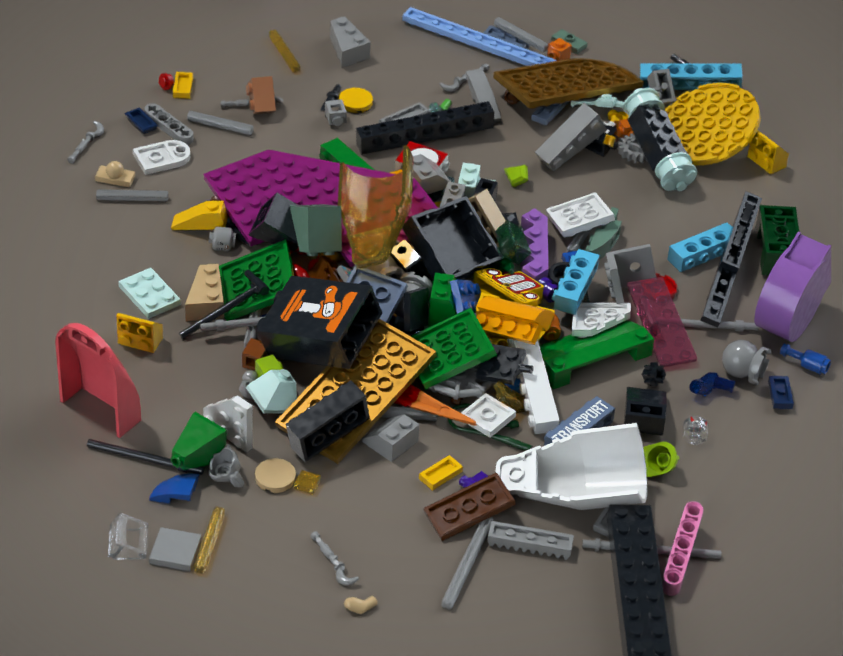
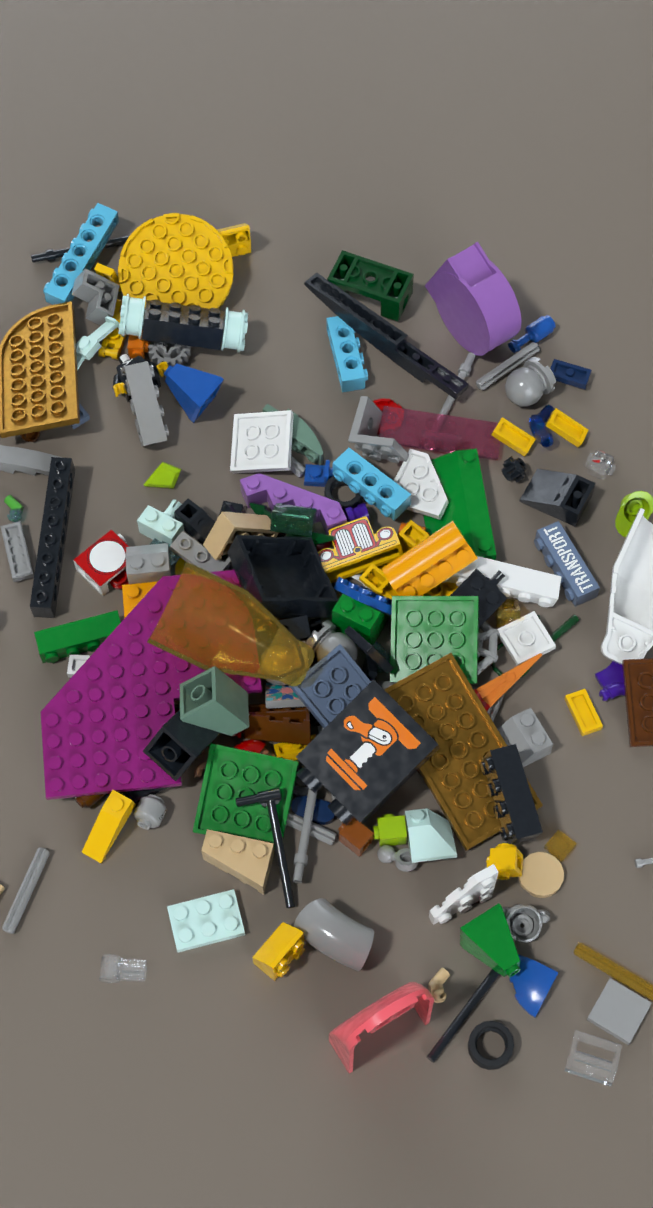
camera: 65 degrees left, 20 degrees up
(91, 255) = (116, 968): none -> clear piece
(112, 460) = (504, 1032): none -> black tyre
(148, 432) = (436, 985): none -> tan arm
(164, 354) = (335, 934): none -> light grey brick
(273, 445) = (507, 861): none -> yellow brick
(601, 164) = (192, 388): none -> blue slope
(677, 85) = (107, 273): none -> yellow tile
(687, 367) = (513, 436): none -> yellow tile
(719, 399) = (566, 427): none -> yellow tile
(775, 357) = (507, 366): none -> light grey axle

